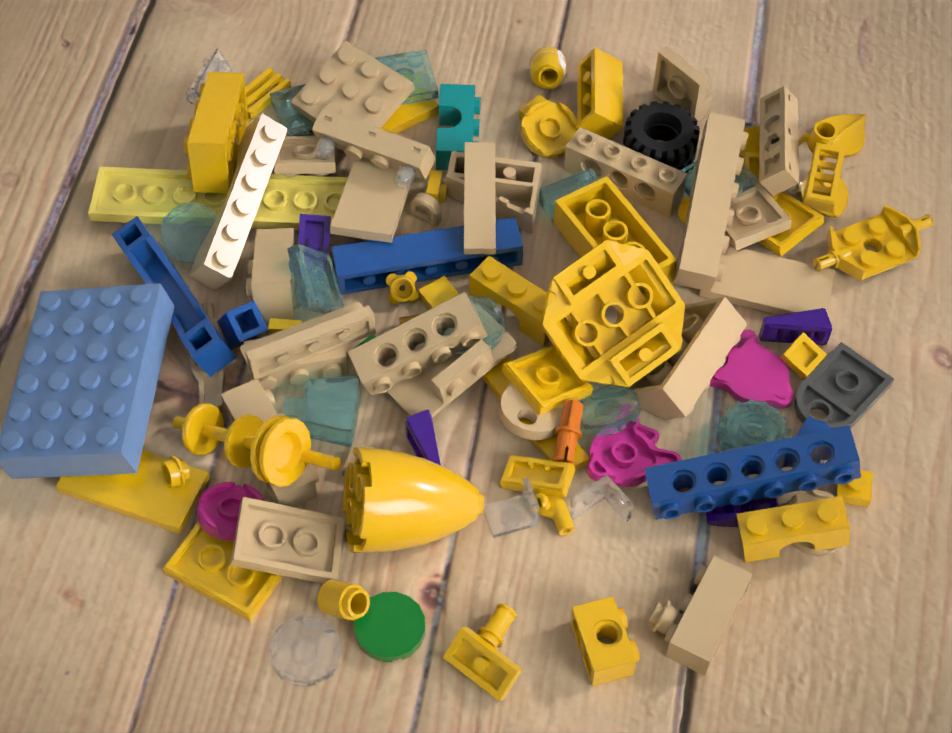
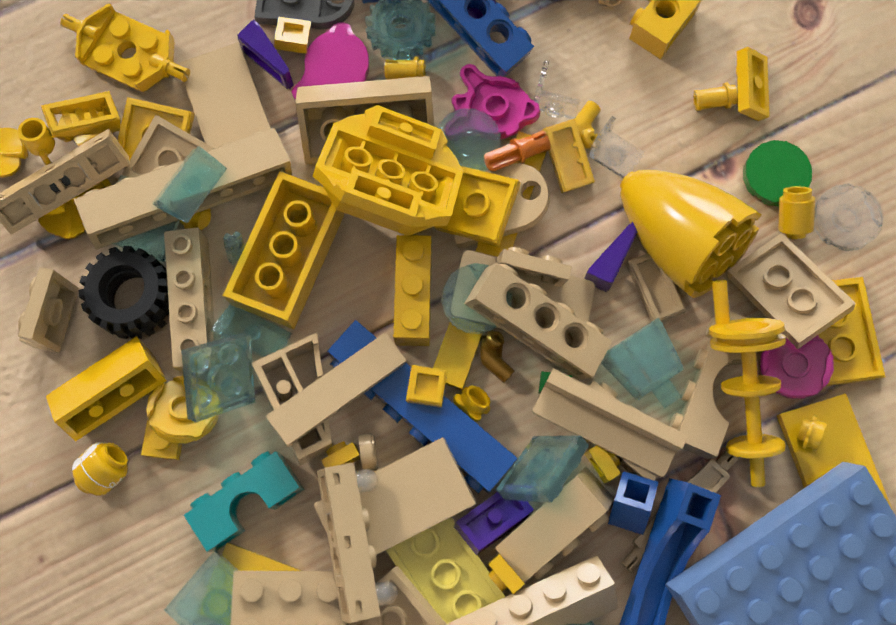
camera: 125 degrees left, 20 degrees up
(271, 218) = (504, 575): none -> yellow plate
(435, 253) = (426, 386): none -> yellow tile
(552, 143) = (218, 376): none -> clear light blue plate
(641, 203) = (234, 246): none -> clear light blue axle
(703, 189) = (190, 185): none -> clear light blue slope
(704, 421) = (404, 68): none -> yellow pin

